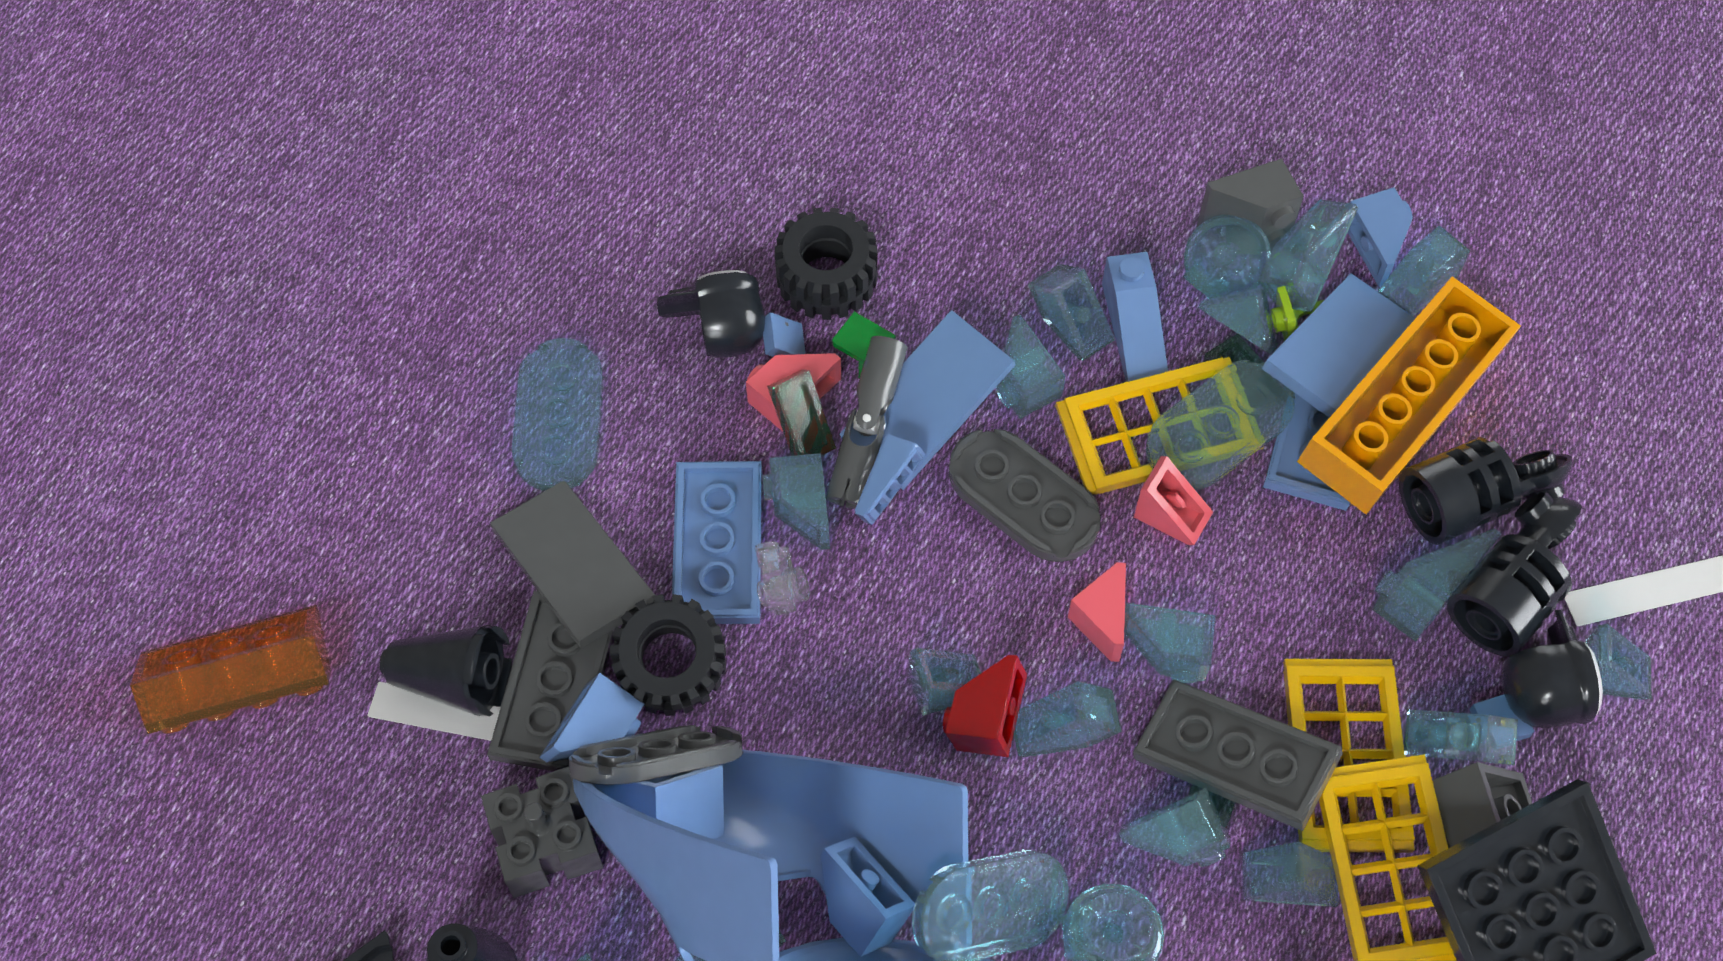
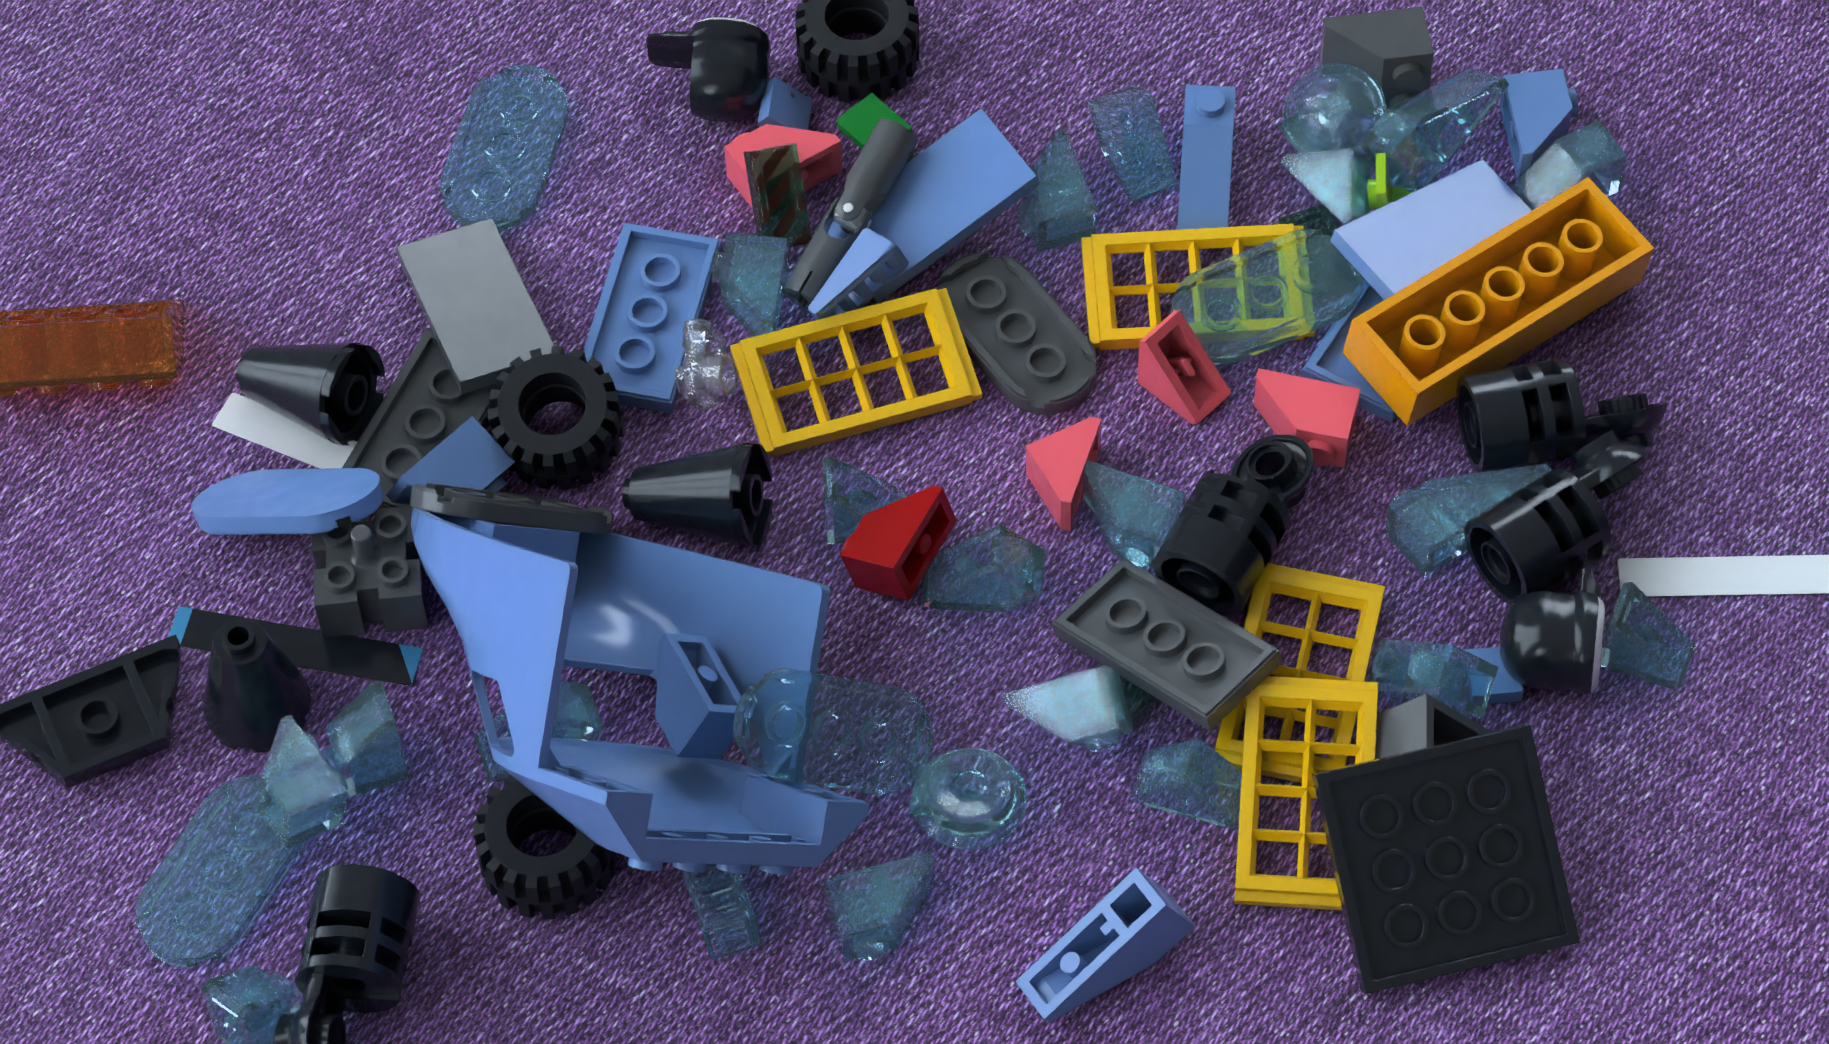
camera: 15 degrees right, 5 degrees down
(456, 785) = (287, 501): none -> medium blue tile
(491, 911) = (308, 648): none -> black sticker
(813, 699) = (706, 494): none -> black cone
(834, 595) = (763, 397): none -> yellow piece
(1264, 633) = (1235, 524): none -> black cylinder
(1286, 522) = (1309, 410): none -> coral slope

